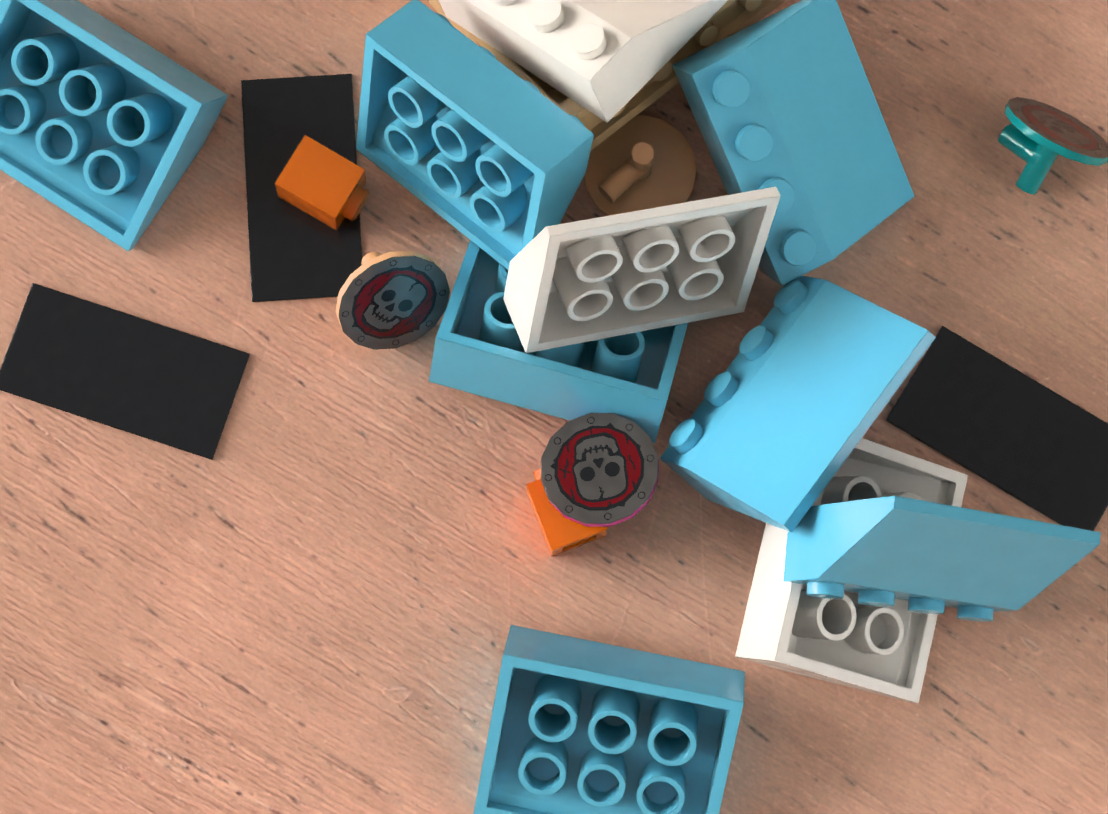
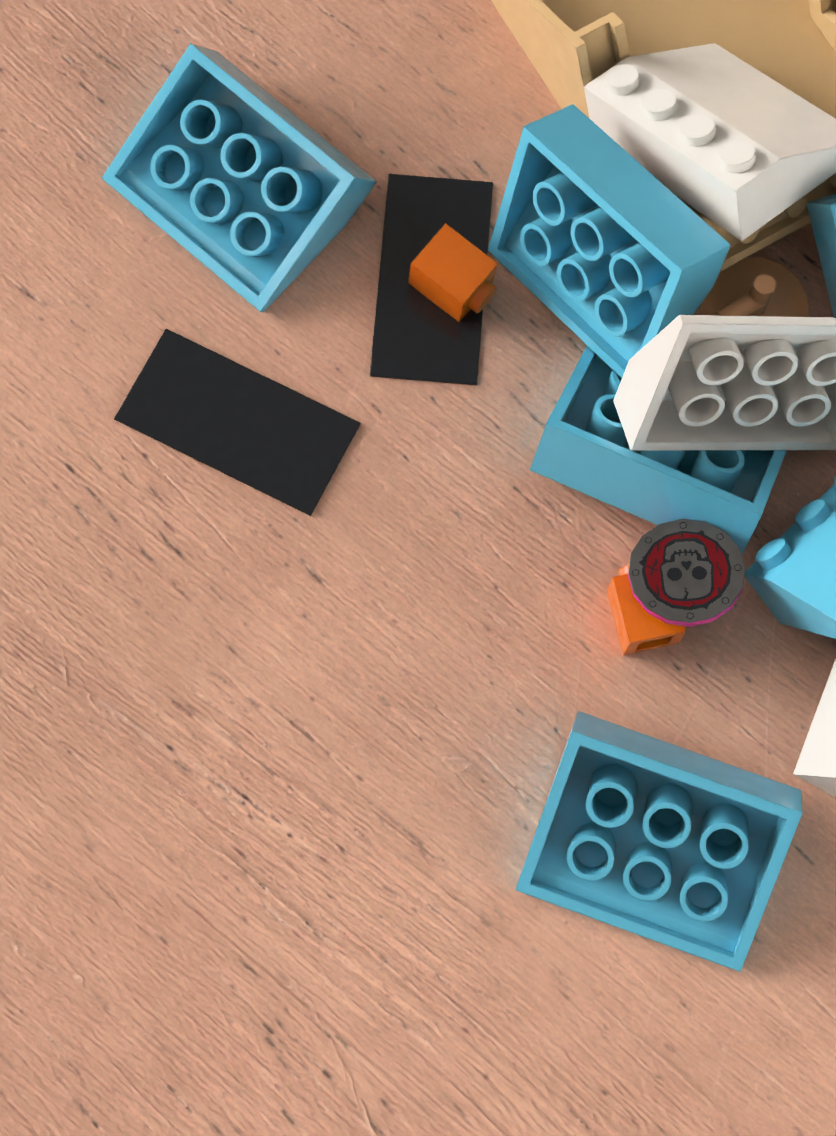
camera: 10 degrees right, 5 degrees down
(392, 299) = (506, 387): shield -> none

